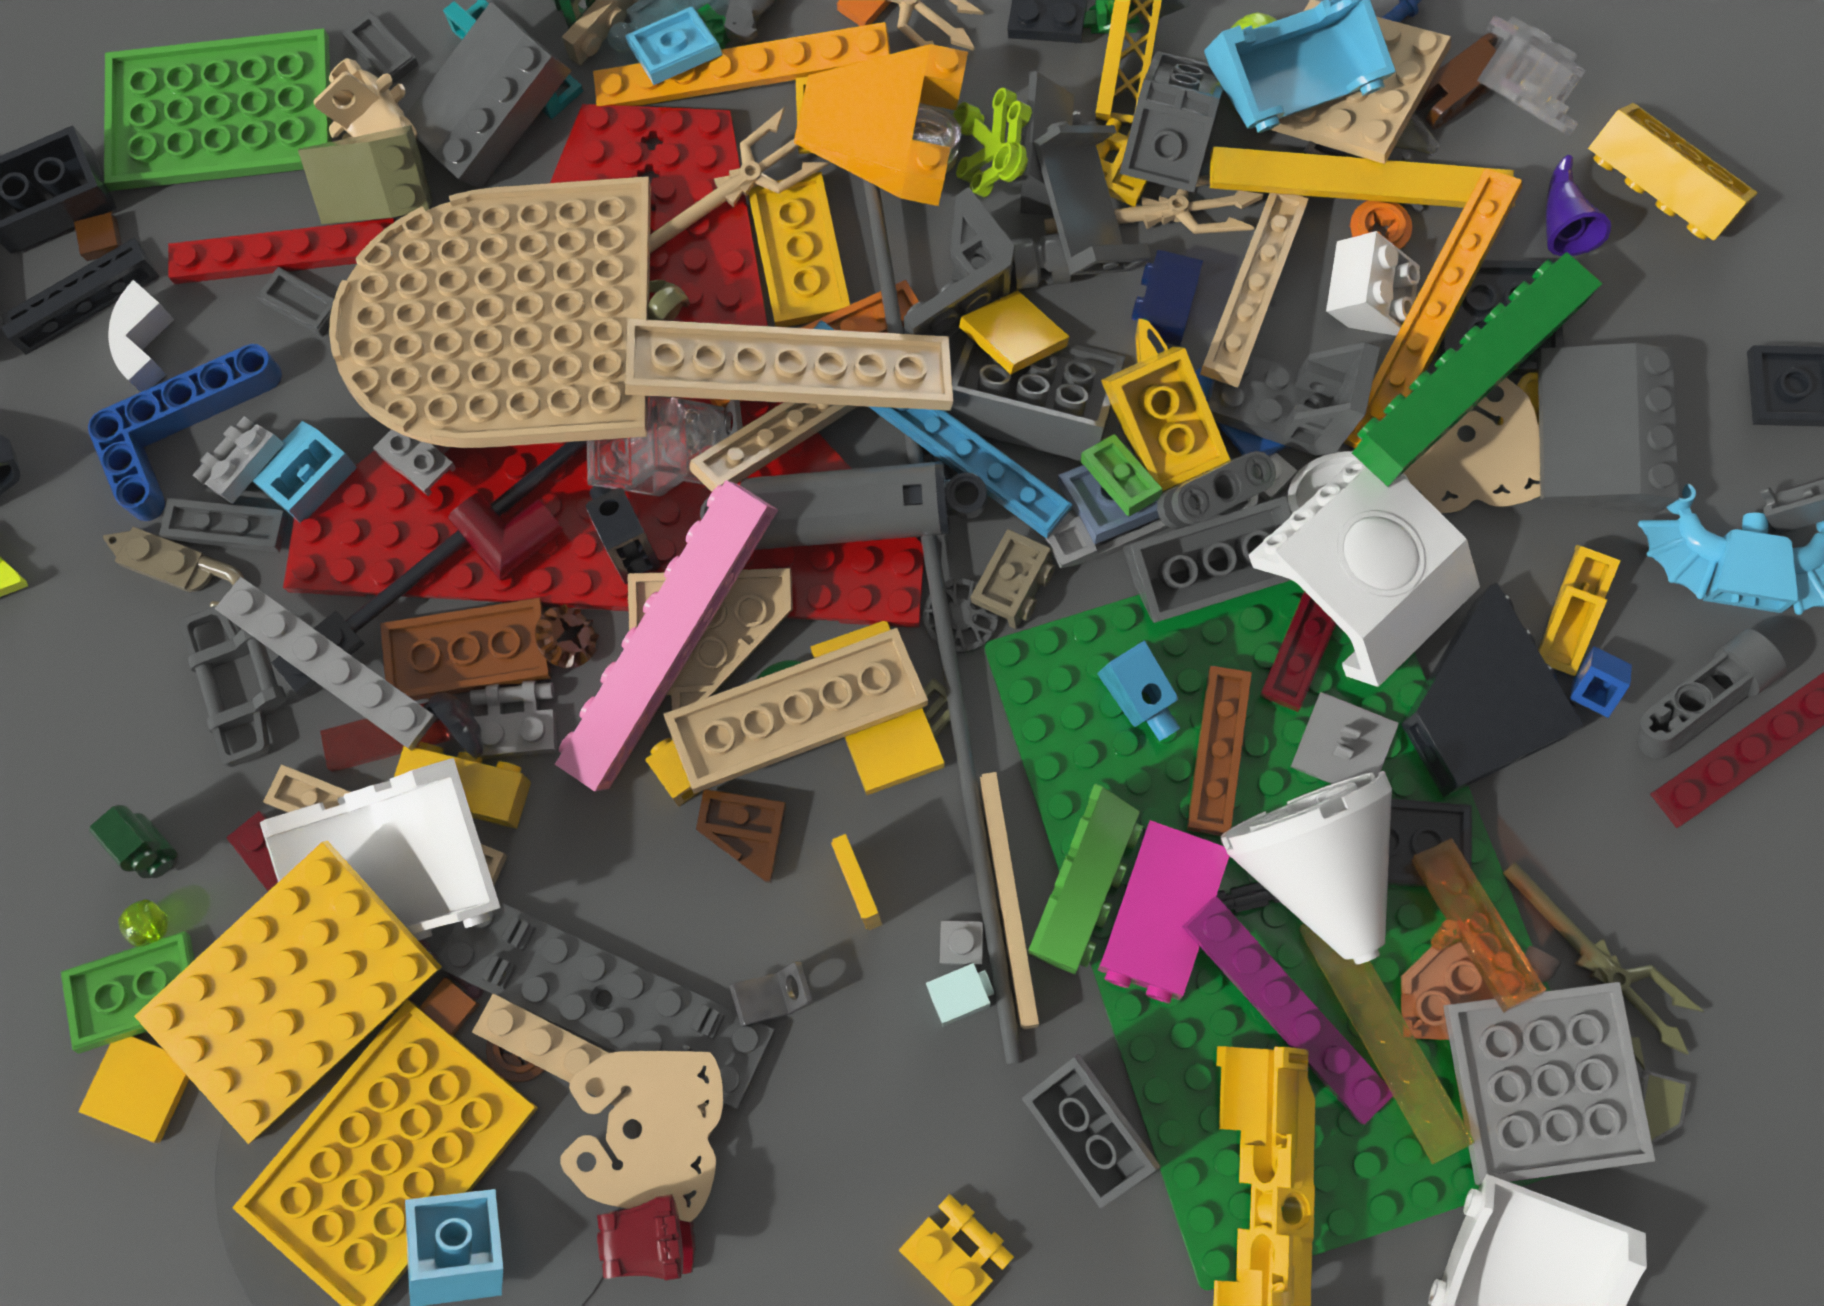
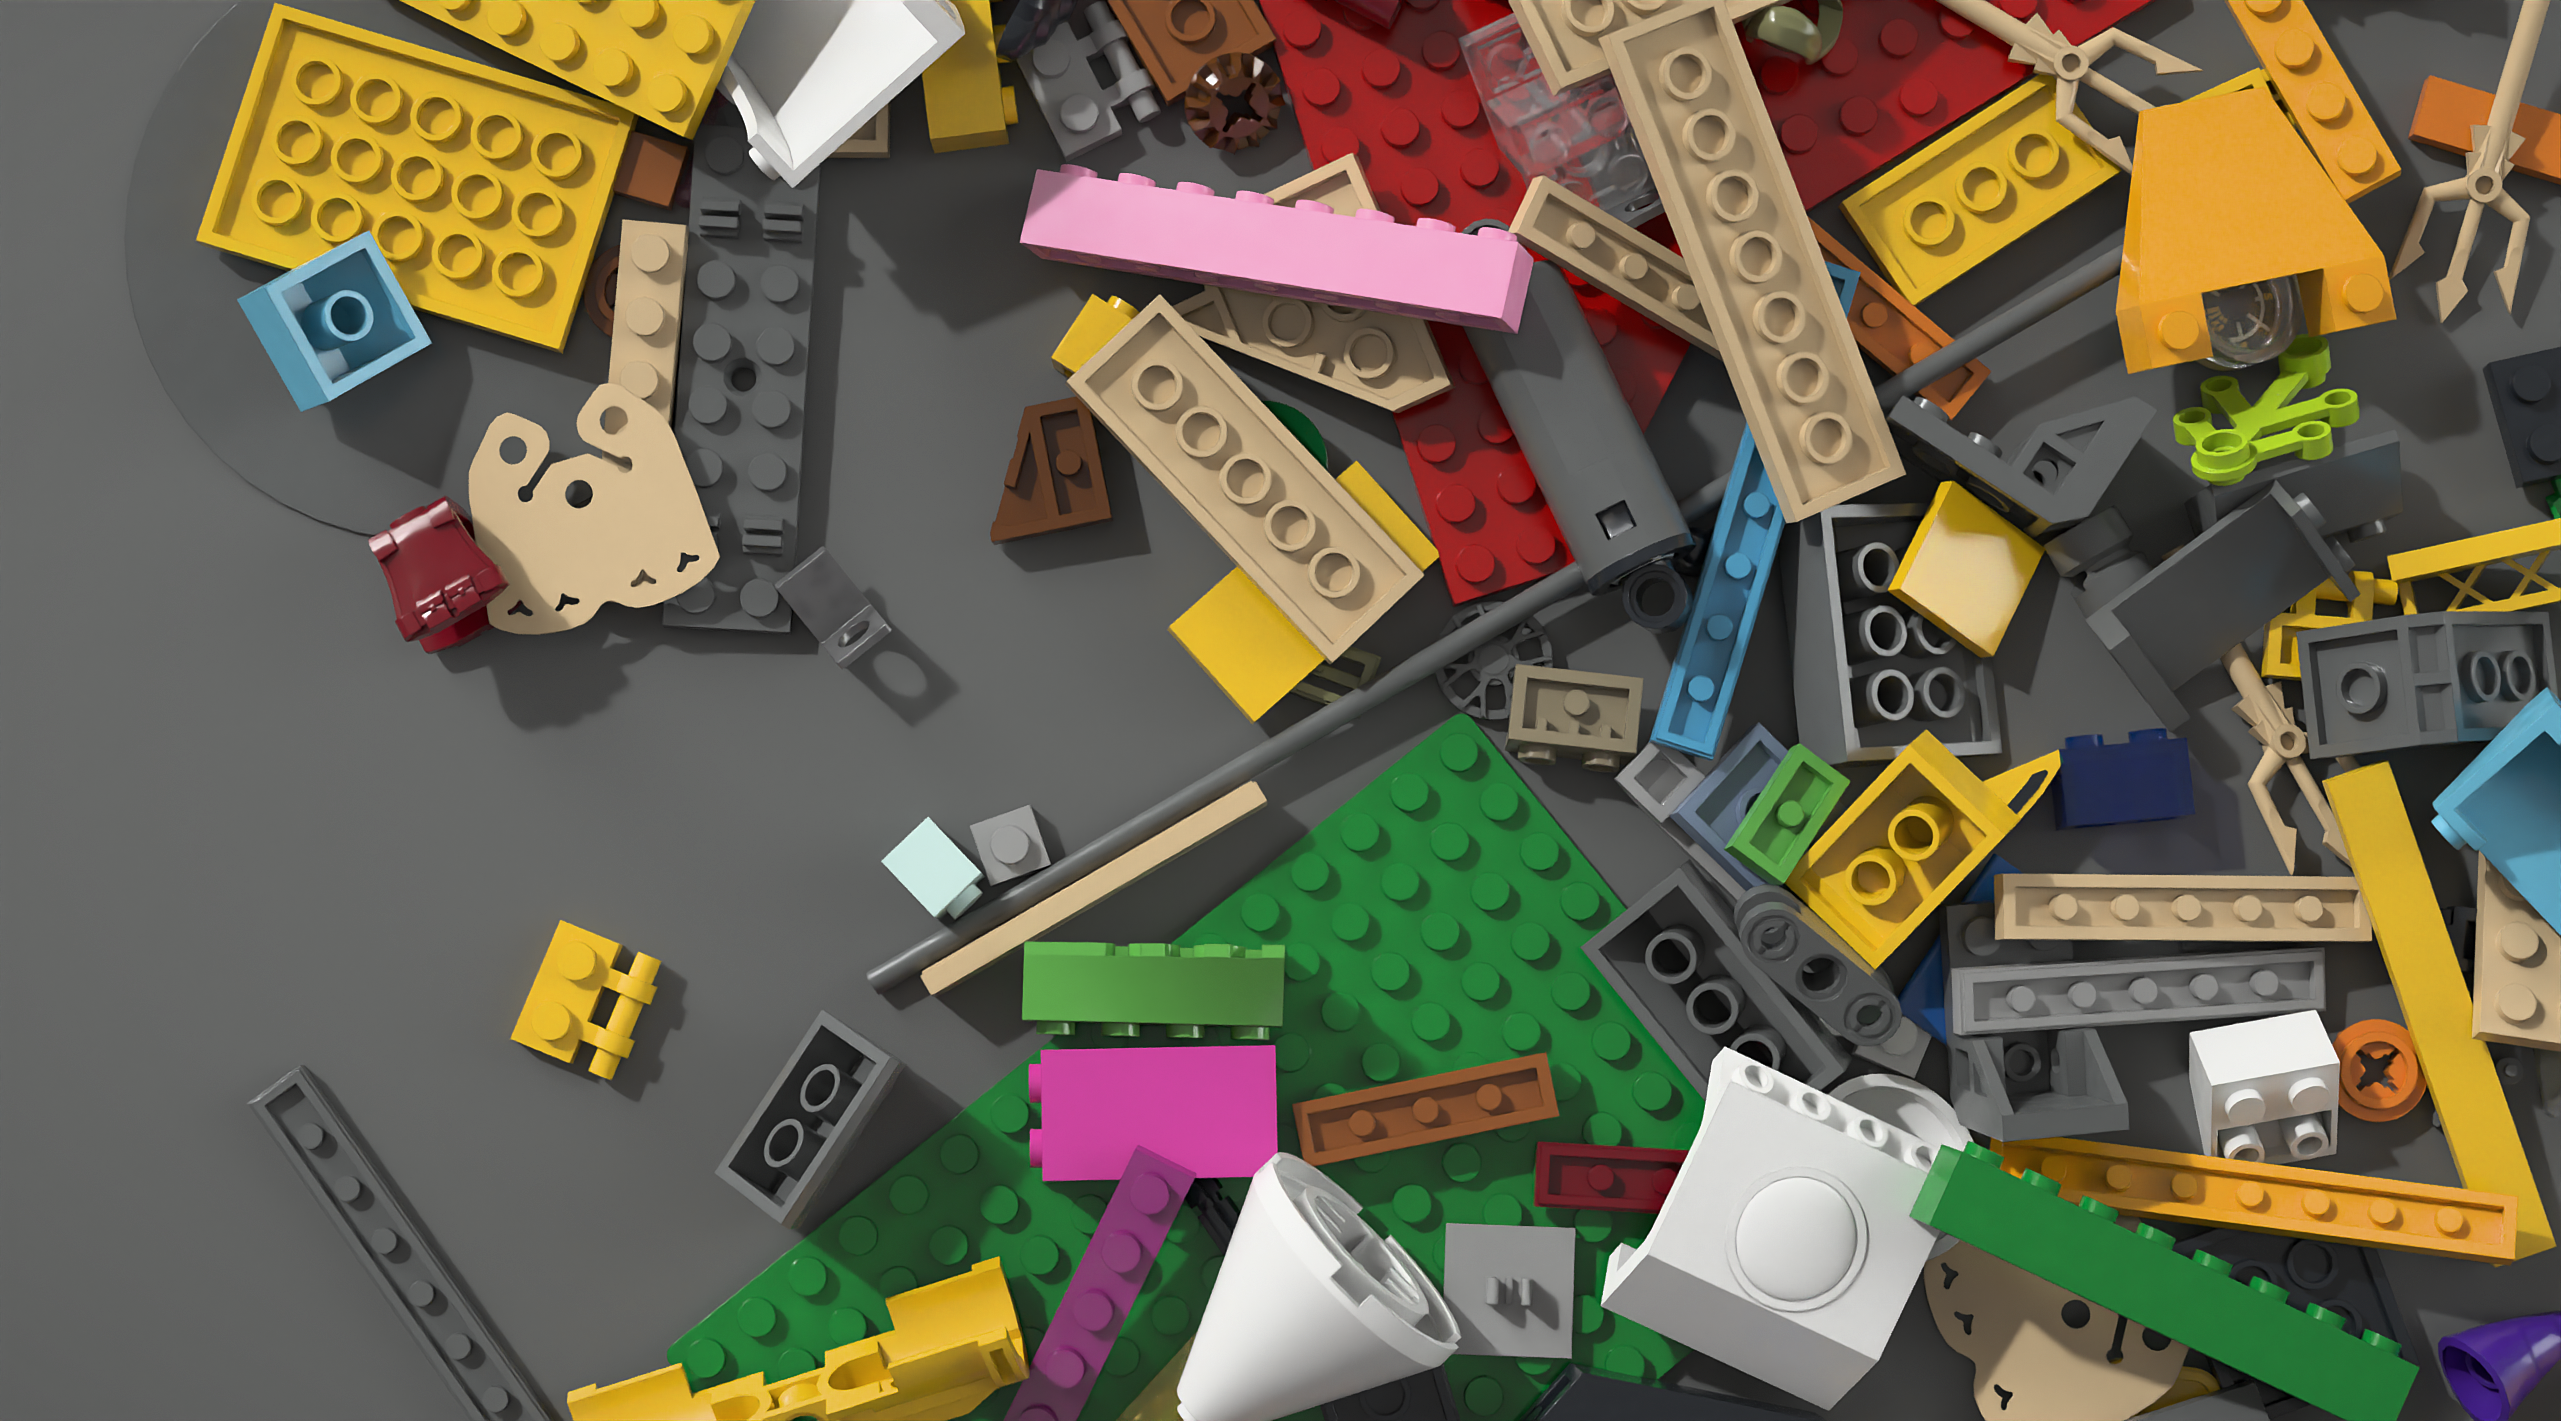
camera: 60 degrees right, 10 degrees up
(621, 532) = (1411, 116): black torso -> none
(856, 882) = (1030, 664): yellow tile -> none
(1138, 673) = (1483, 943): dark azure torso -> none
(1291, 330) = (2138, 989): none -> light grey tile

